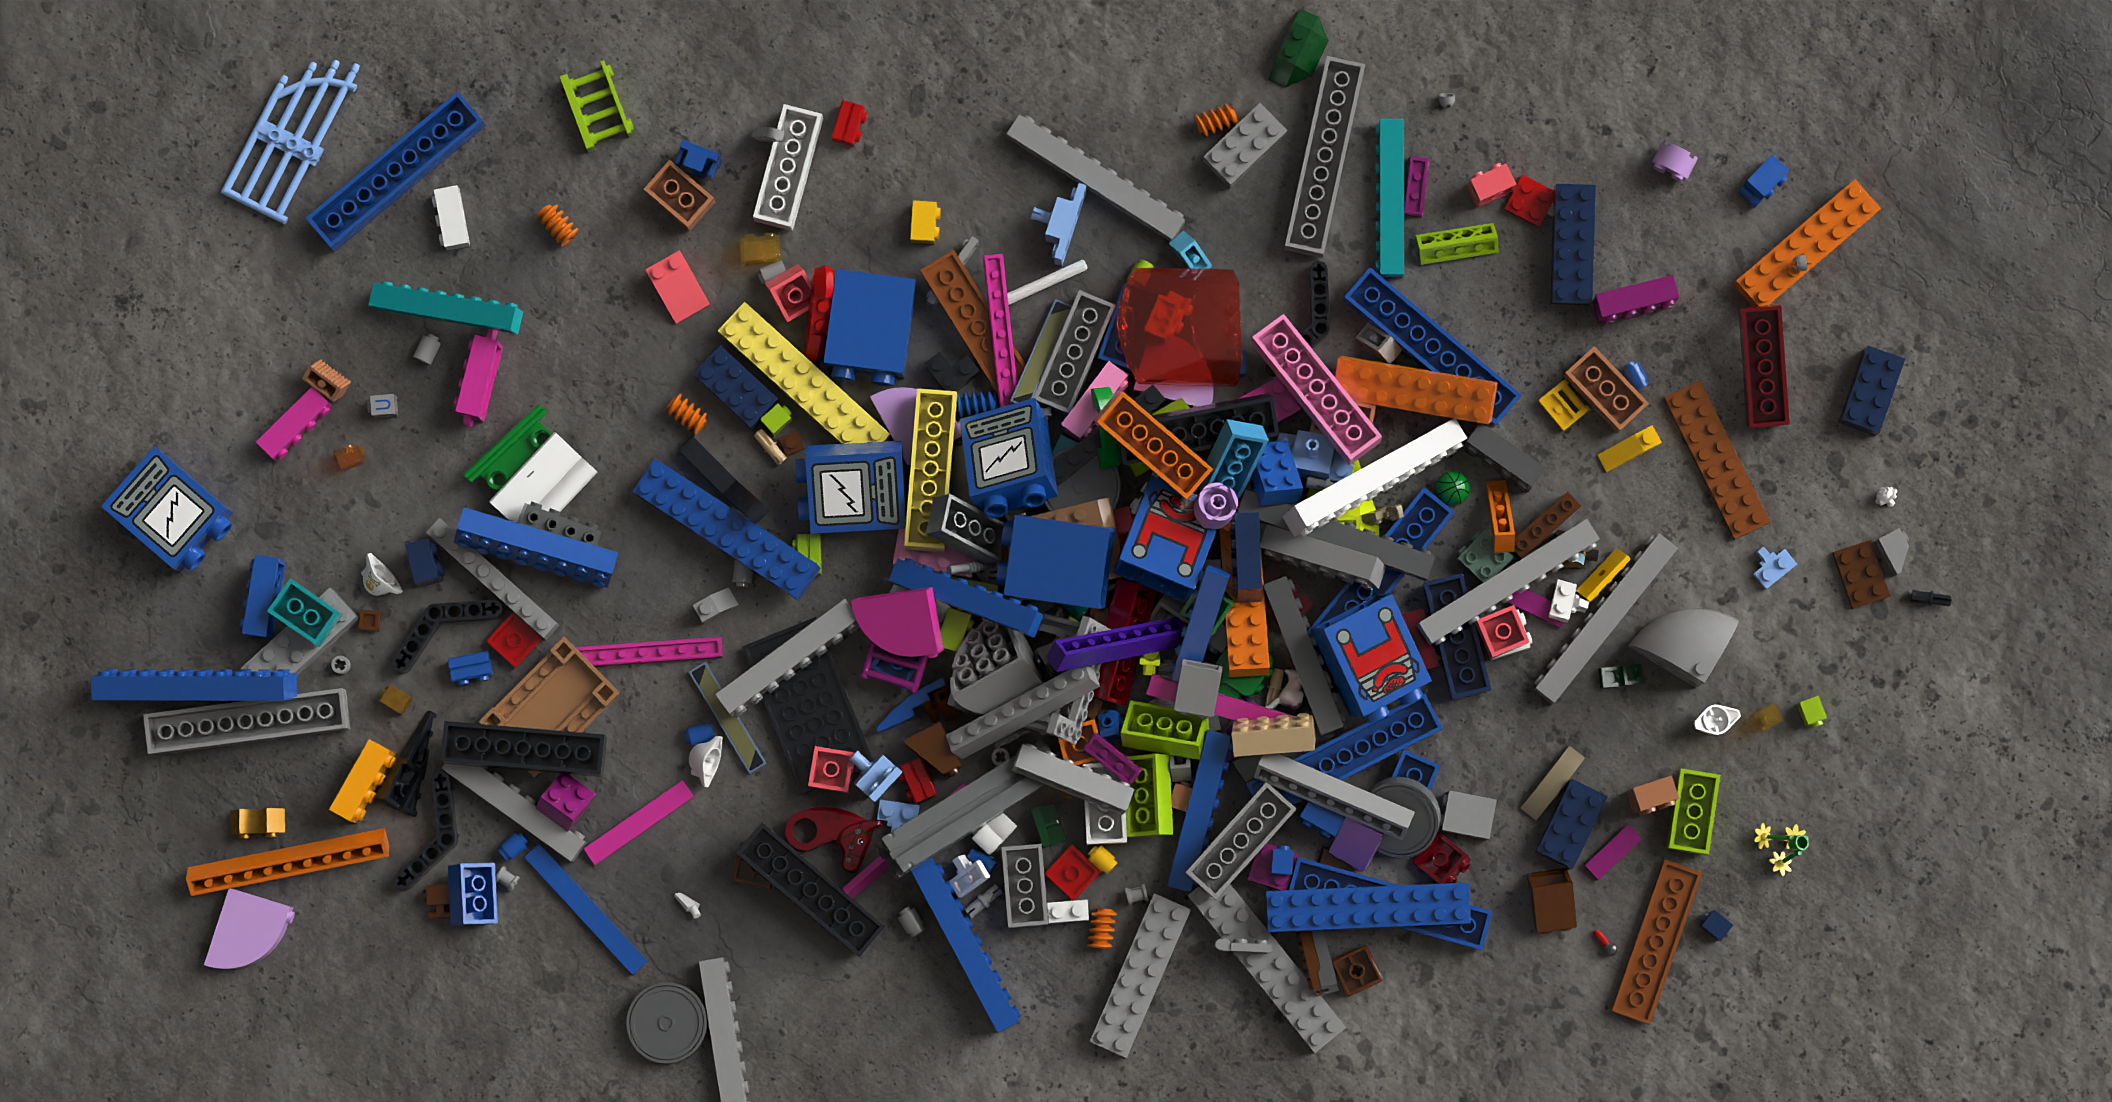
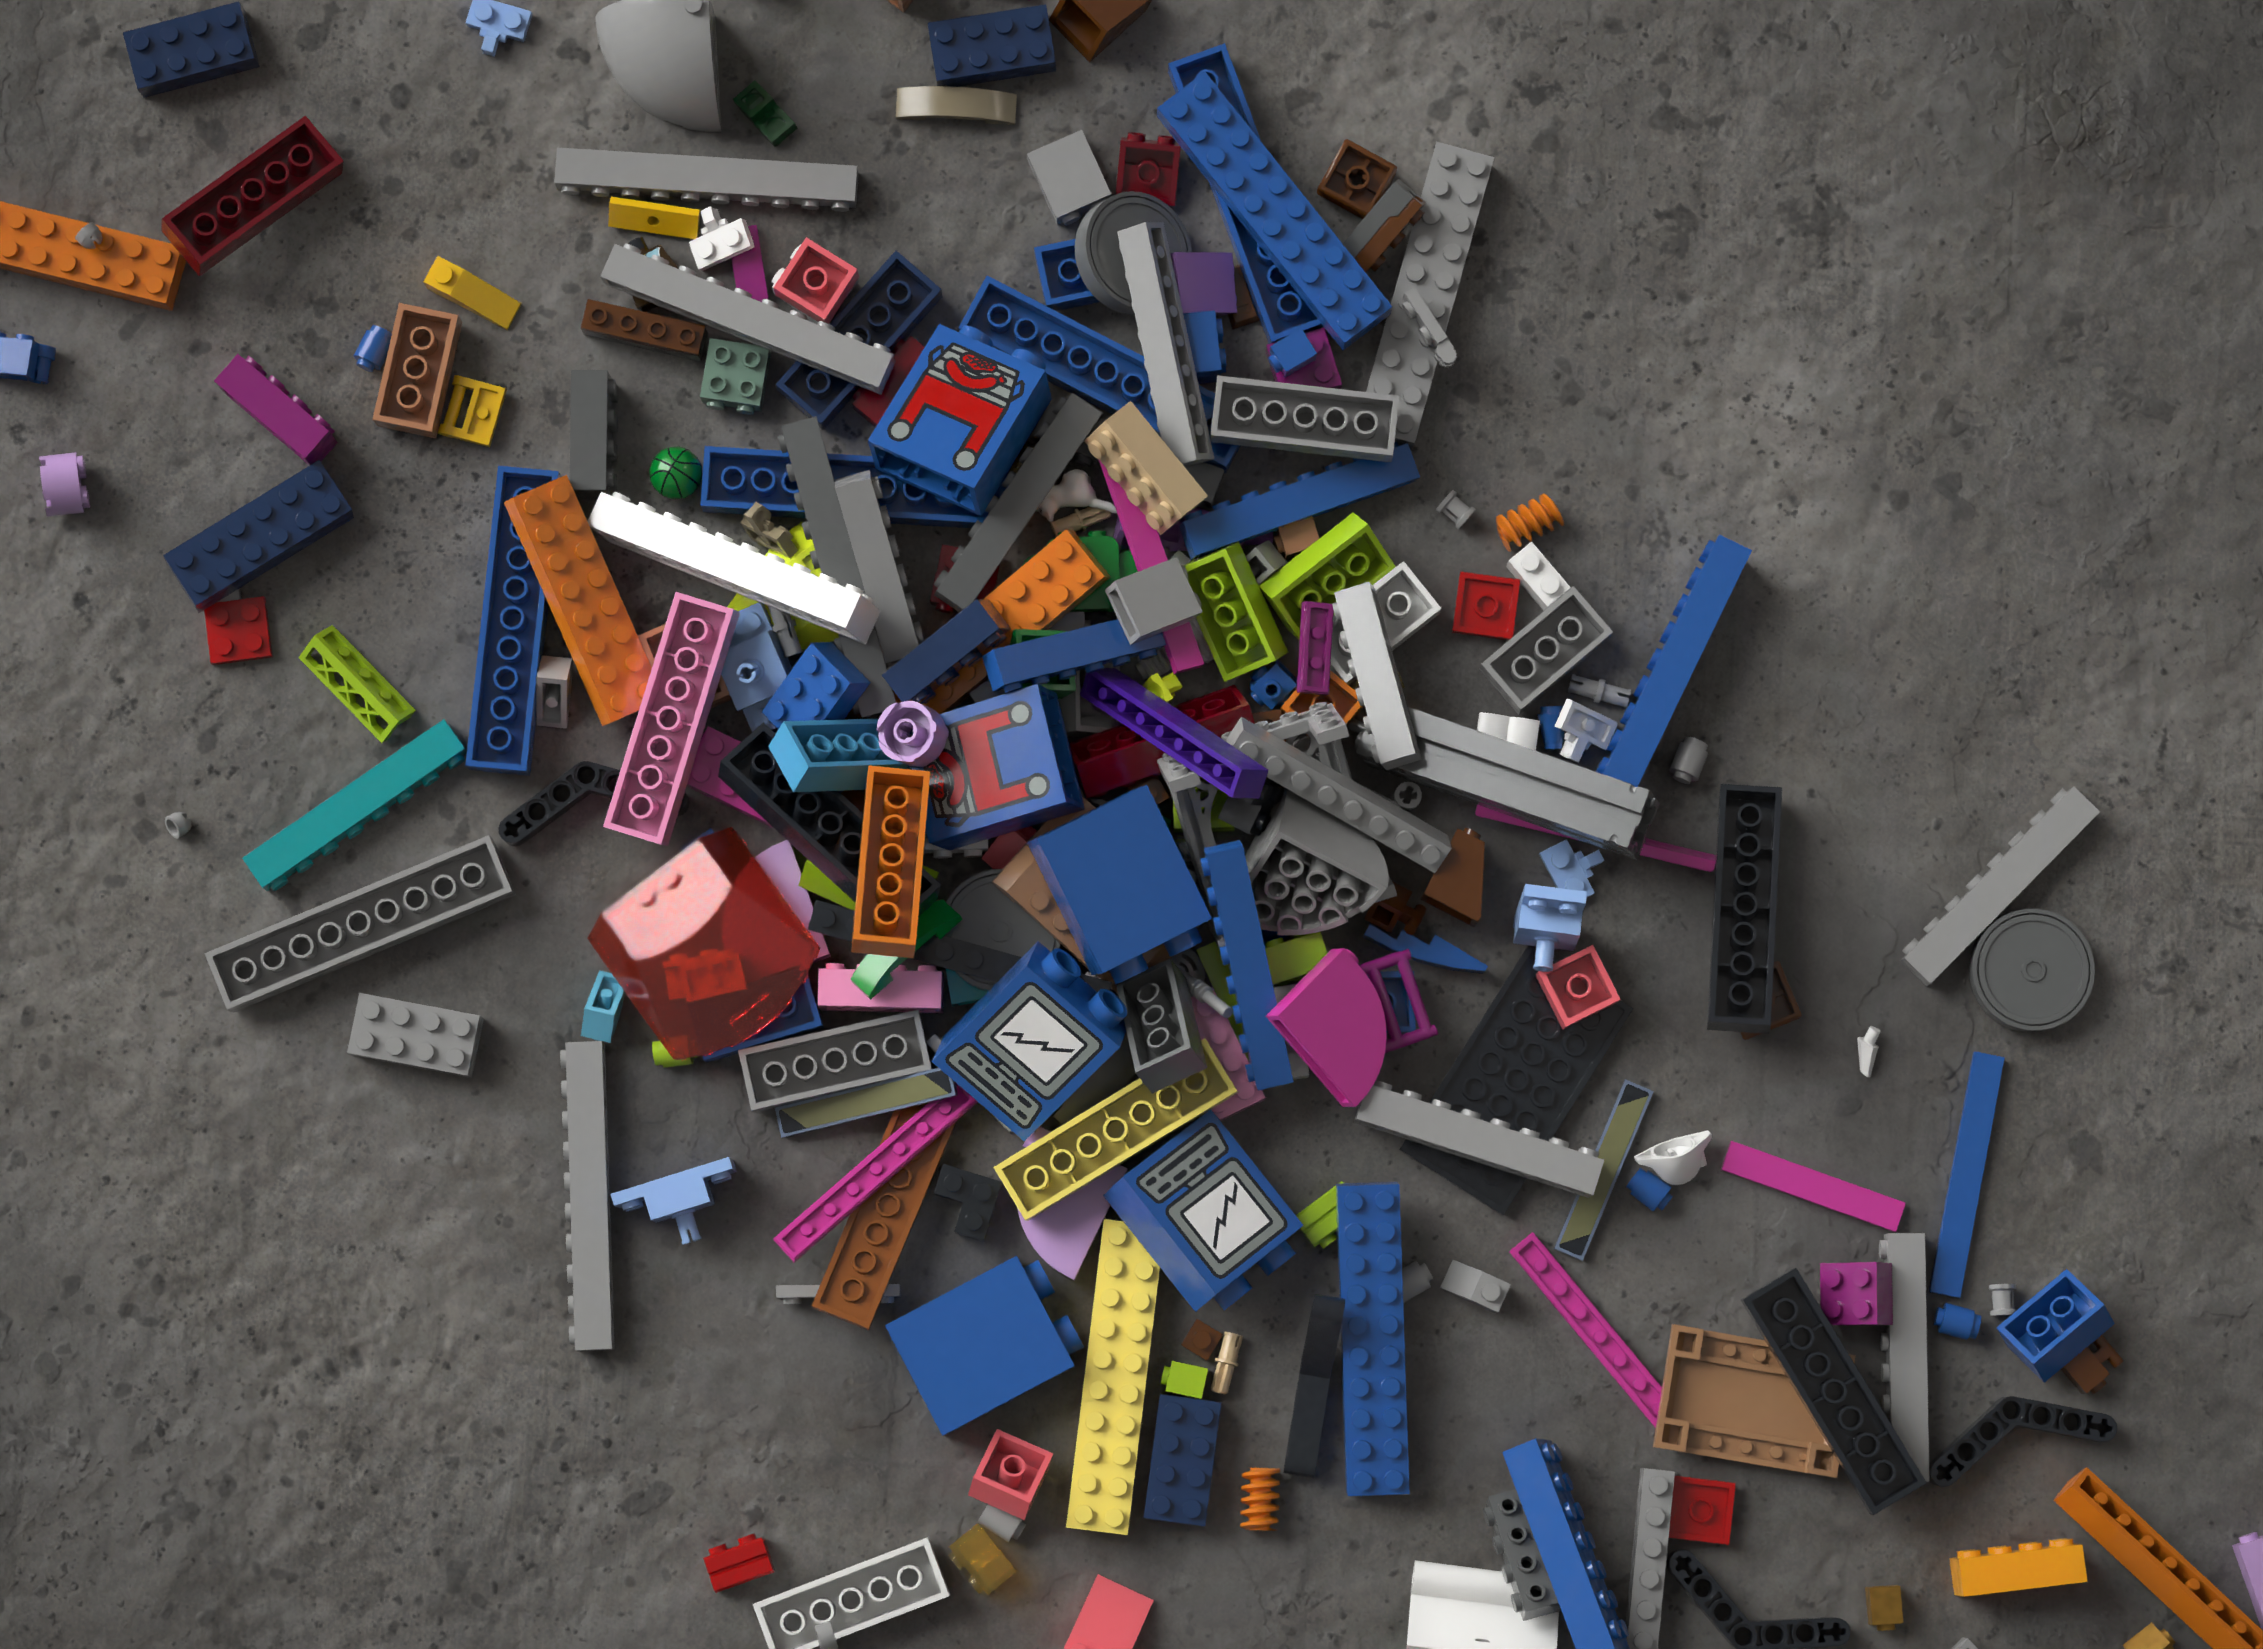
camera: 130 degrees left, 0 degrees up
(404, 780) = (1978, 1520): black wedge -> none
(470, 667) = (1776, 1539): blue brick -> none
(819, 312) = (1013, 1420): red brick -> none
(833, 824) = (1640, 941): dark red animal -> none
(918, 781) = (1511, 874): red brick -> none
(924, 222) = (799, 1373): yellow brick -> none
(975, 403) = (986, 1138): blue piece -> none
(1046, 281) = (765, 1163): white axle -> none
(1048, 825) = (1449, 677): dark green panel -> none
(1102, 859) = (1444, 580): yellow brick -> none
(1140, 975) = (1552, 434): light grey brick -> none
(1217, 119) = (406, 1096): orange piece -> none
(1300, 50) = (241, 1053): dark green wedge -> none
(1416, 186) = (317, 786): magenta tile -> none
(1491, 185) = (256, 690): coral brick -> none
(1500, 516) = (670, 387): orange slope -> none
(1716, 459) = (410, 180): dark orange plate -> none

